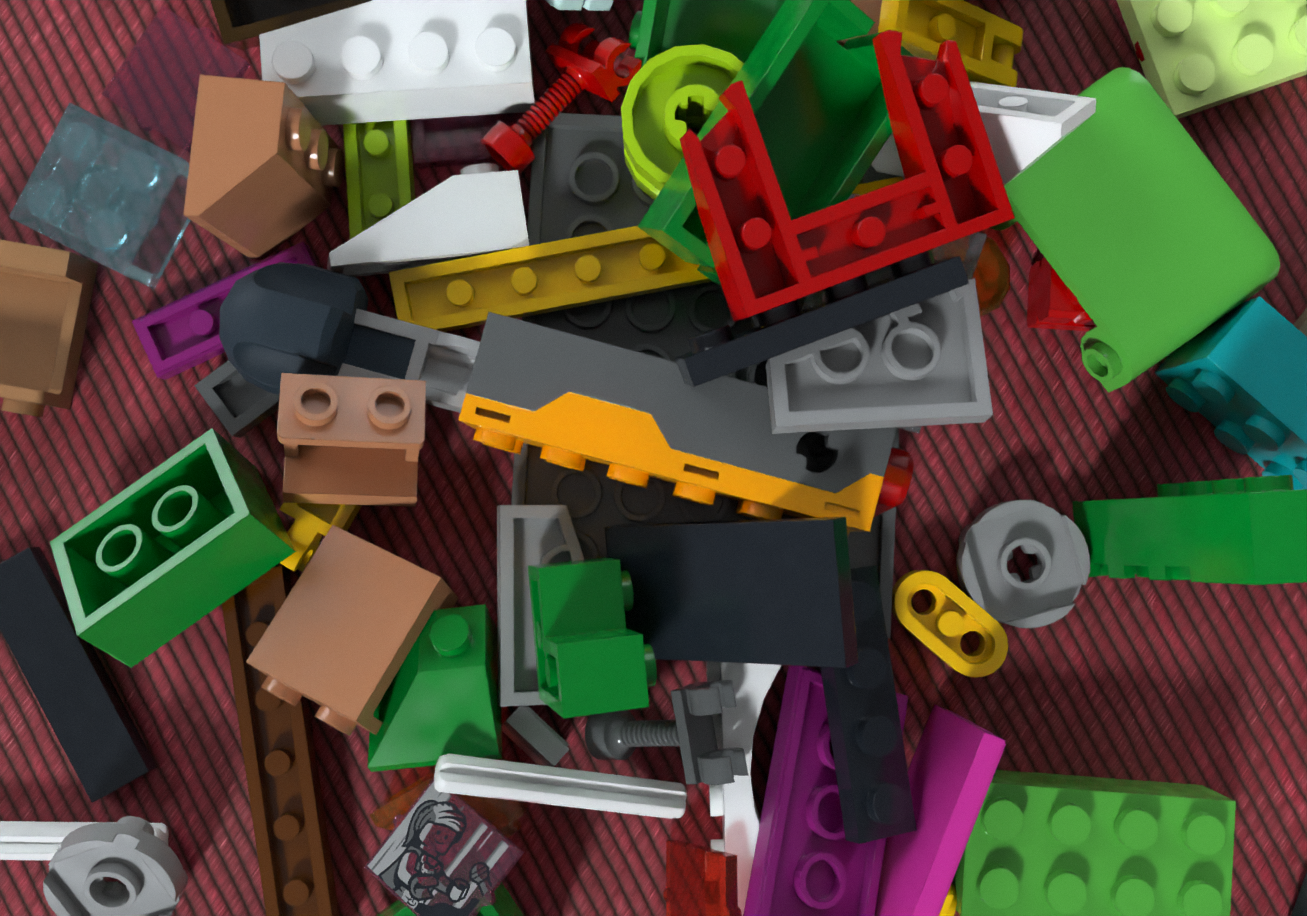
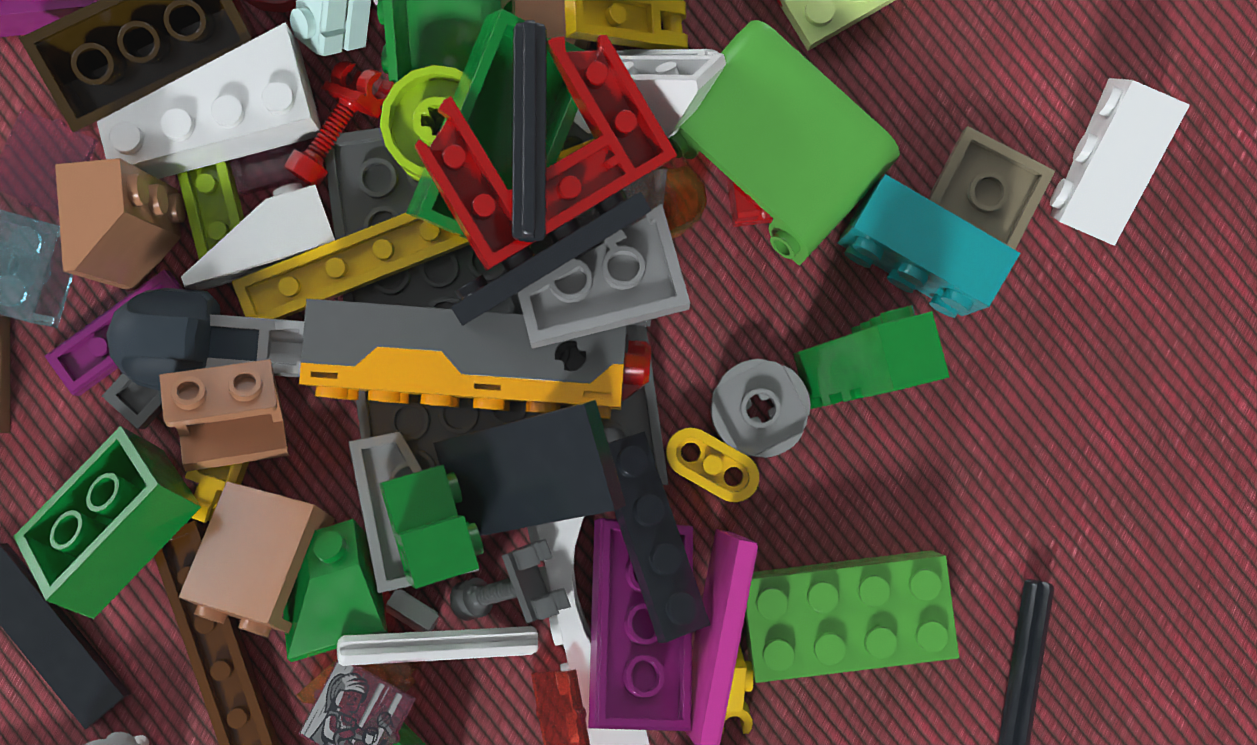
camera: 10 degrees left, 0 degrees up
(835, 148) = (529, 131): none -> black axle

